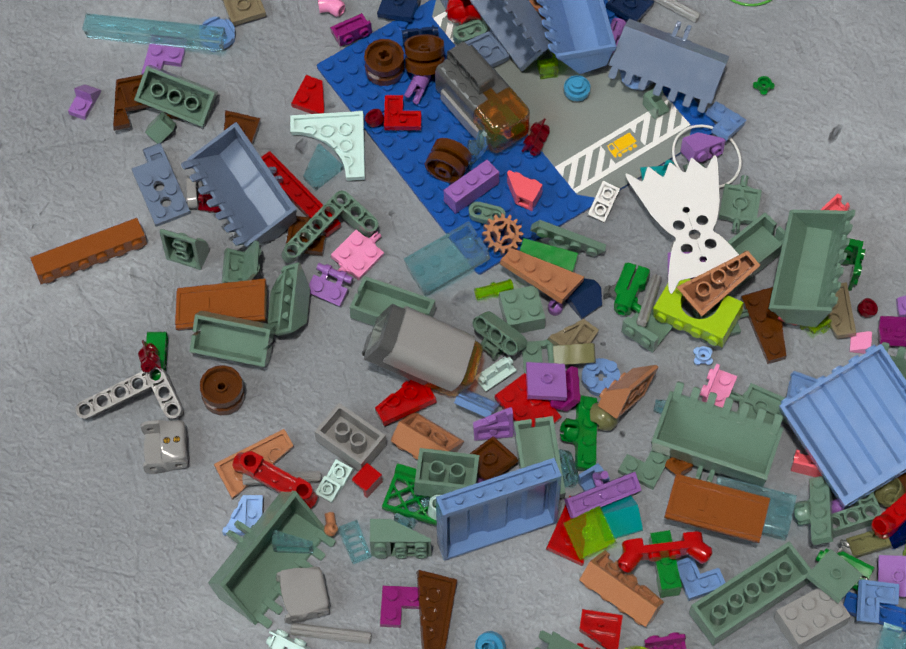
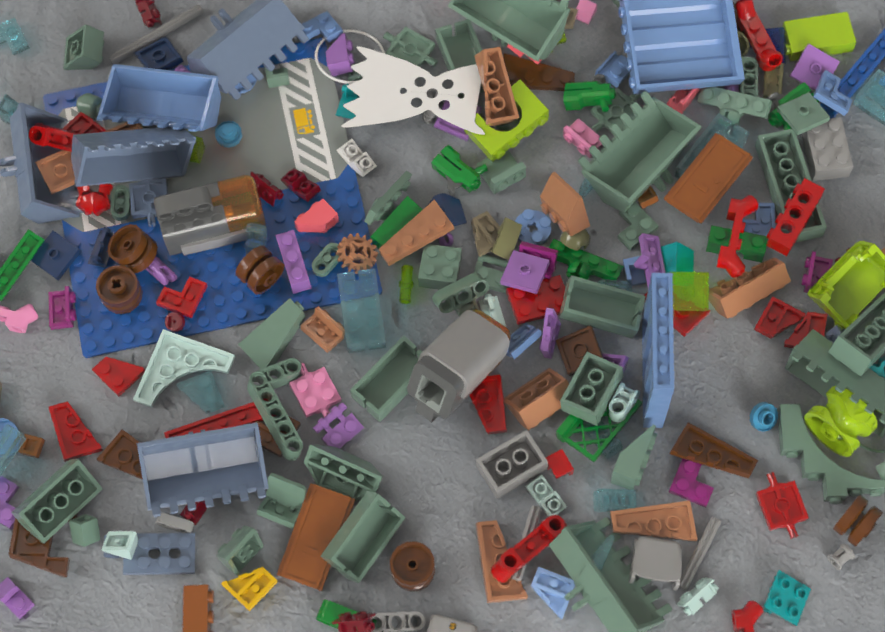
camera: 65 degrees left, 5 degrees up
(153, 156) = (121, 543): none -> light aqua slope
(157, 272) = (250, 587): none -> yellow wing
(219, 59) = (32, 446): none -> dark orange plate
(242, 83) = (71, 433): none -> red wing
(330, 528) = (595, 516): nougat arm -> none
(348, 587) = (660, 521): none -> nougat wing
(395, 199) = (274, 334): none -> sand green slope
(417, 236) = (323, 329): none -> nougat bracket
(553, 165) = (300, 185): none -> dark red slope
(649, 300) = (479, 157): light grey axle -> none
(699, 606) = (782, 241): none -> red brick
(706, 351) = (546, 133): light blue plate -> none
(764, 373) = (589, 93): none -> green piece

